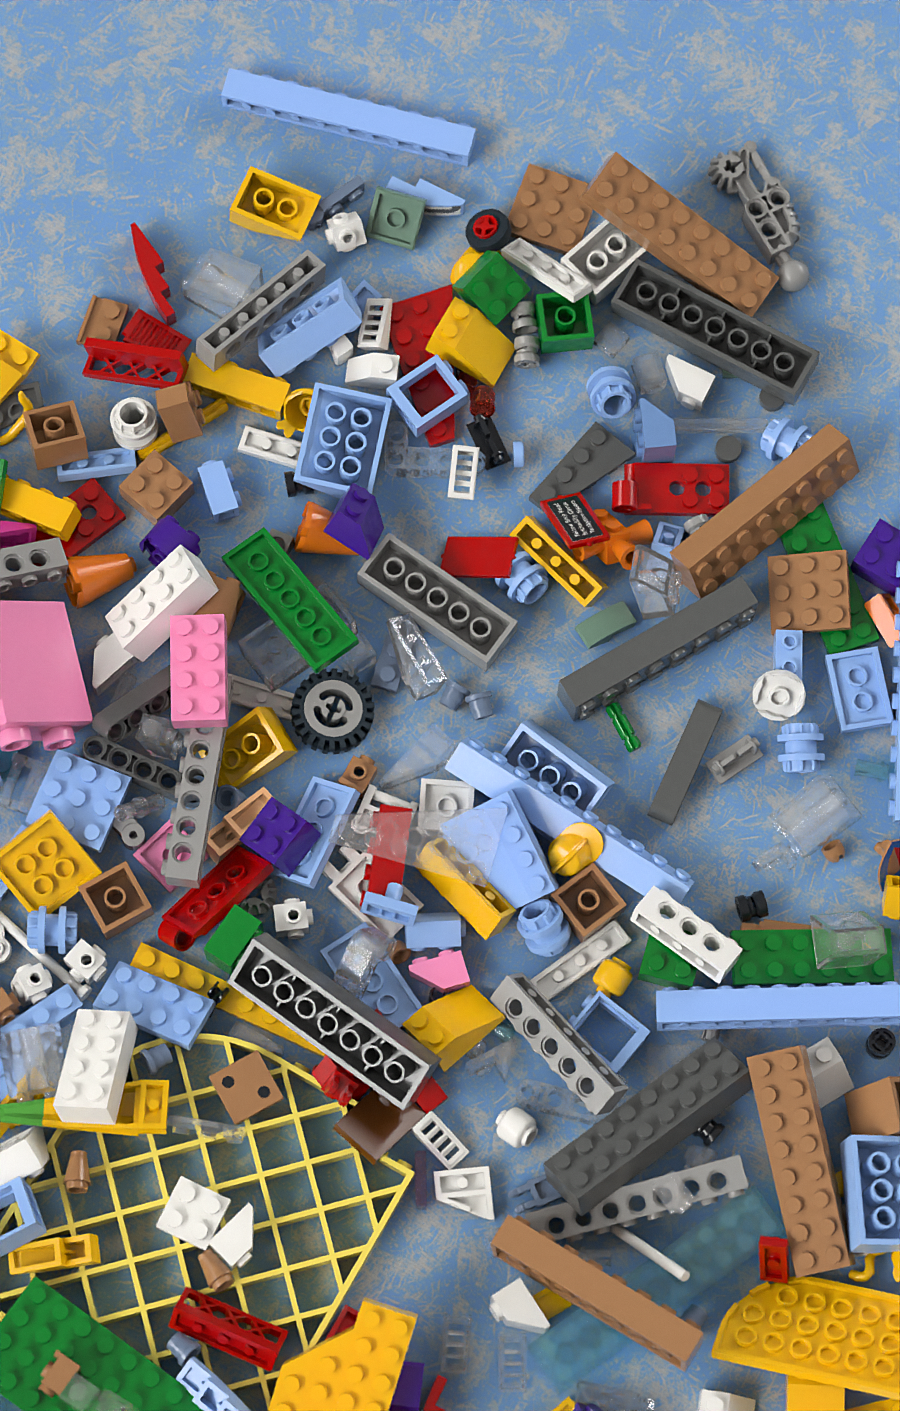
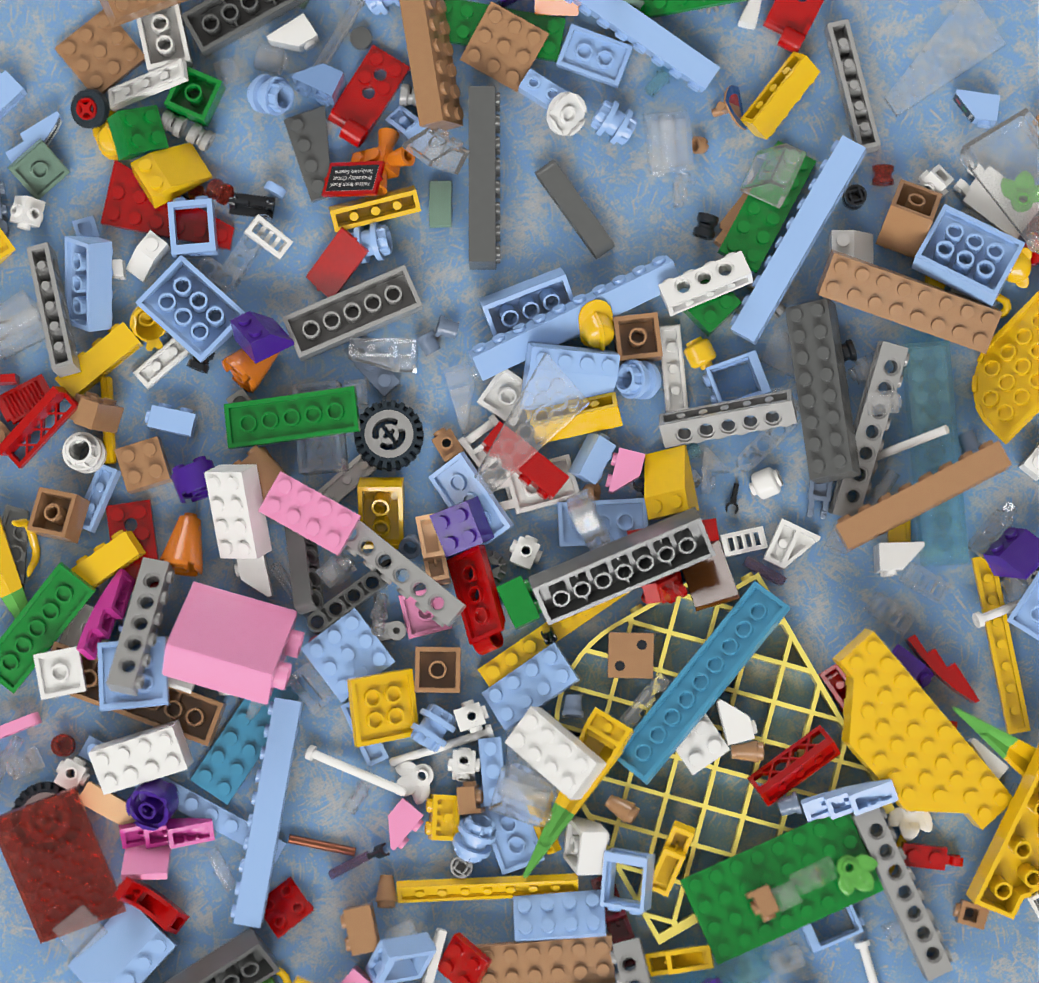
camera: 55 degrees left, 10 degrees up
(247, 1034) = (591, 632): clear slope -> none
(260, 1176) = (702, 681): none -> dark azure plate
(382, 339) = (117, 226): white slope -> none
(390, 906) = (562, 478): light blue tile -> none
(479, 1104) = (733, 499): none -> black hand
(623, 727) = (524, 237): green axle -> none
(734, 759) = (592, 173): light grey hinge -> none
(774, 1259) = (963, 361): red plate -> none

